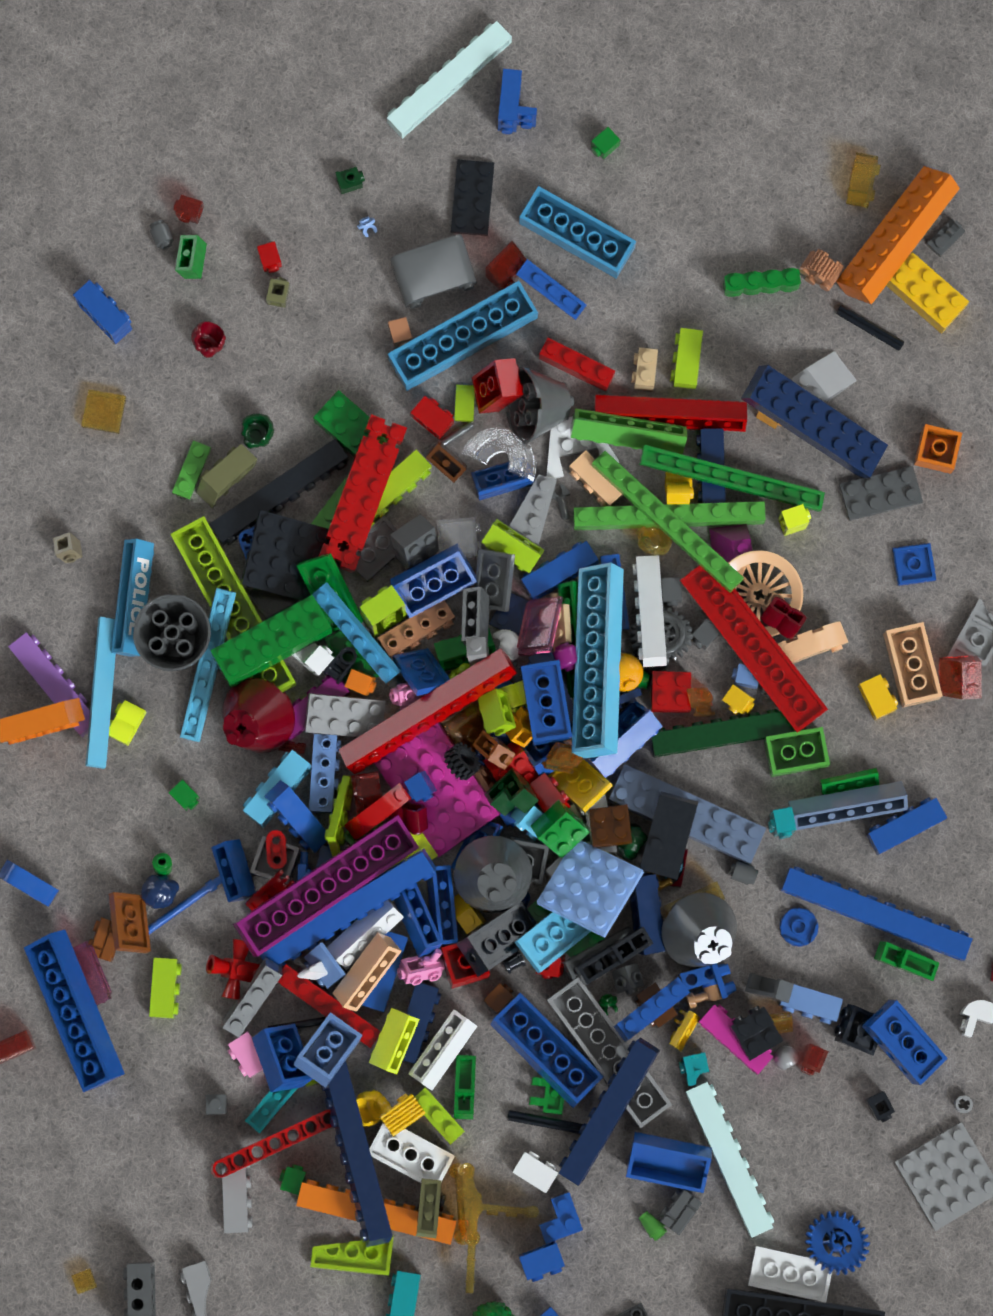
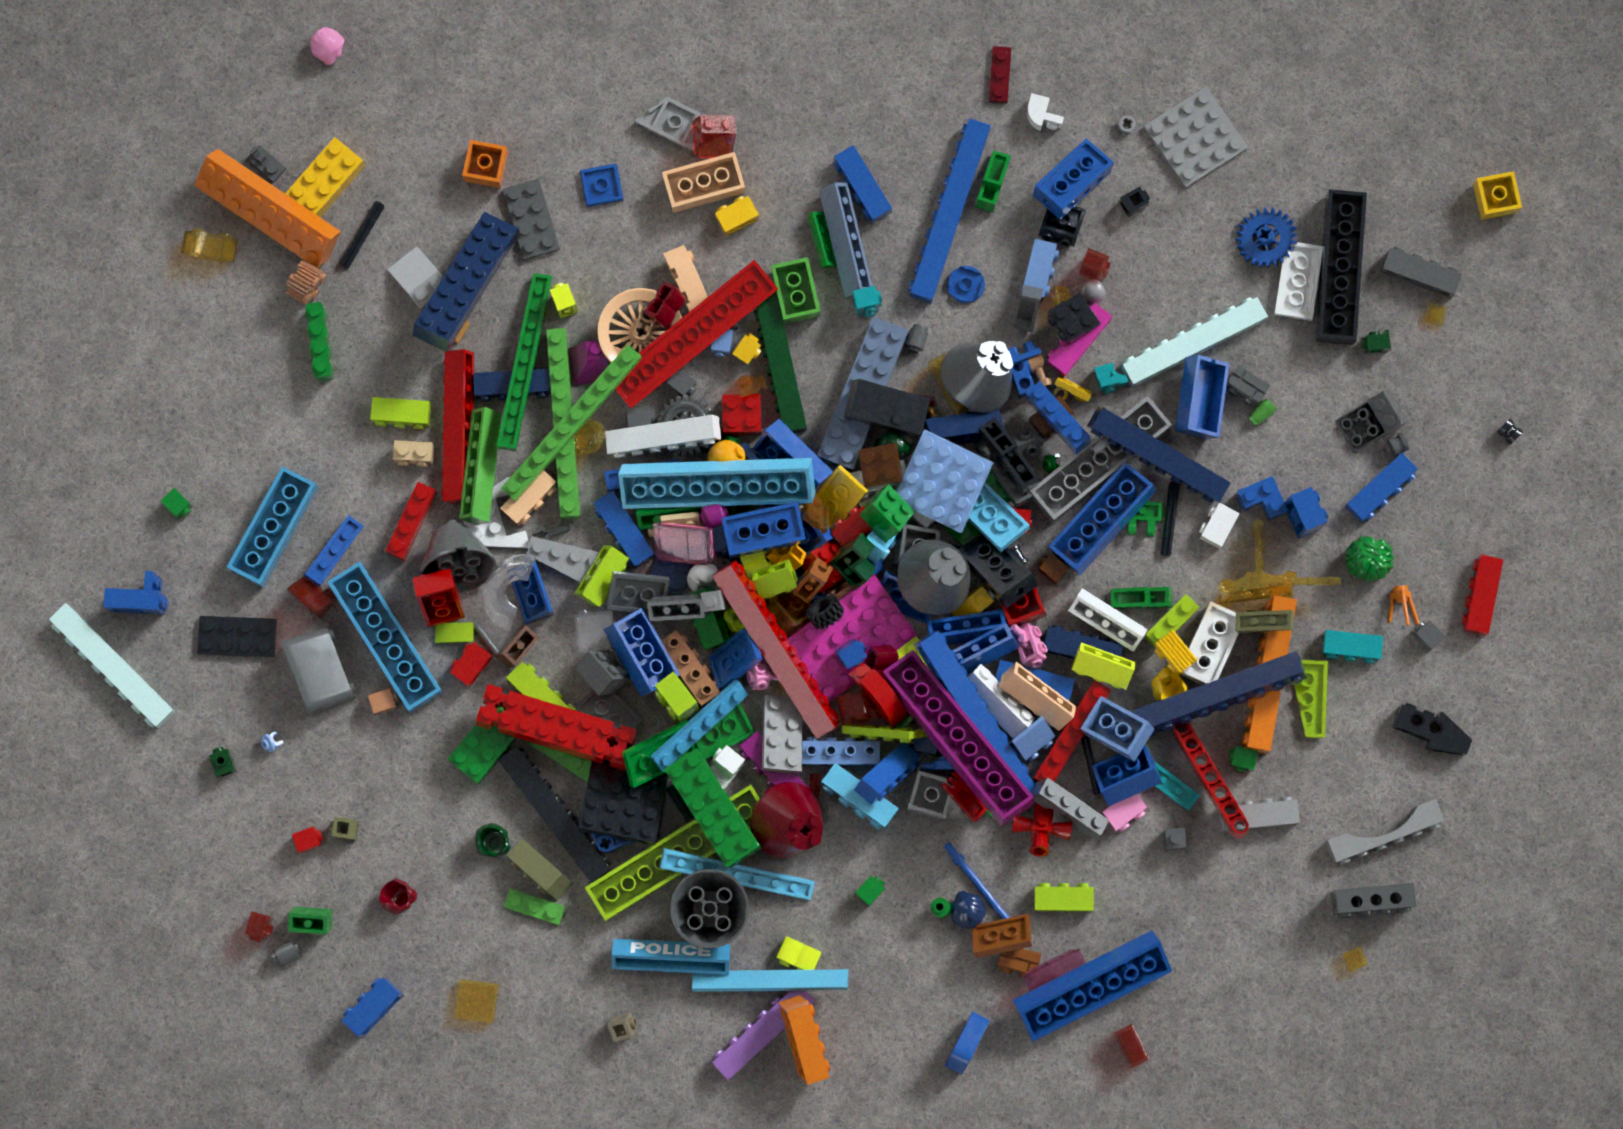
camera: 90 degrees left, 0 degrees up
(233, 870) = (943, 836): blue brick -> none
(276, 850) = (922, 791): red plate -> none
(313, 972) = (1039, 748): white slope -> none
(339, 667) = (733, 739): black piece -> none
(361, 682) = (748, 719): orange brick -> none
(678, 489) = (538, 415): yellow brick -> none

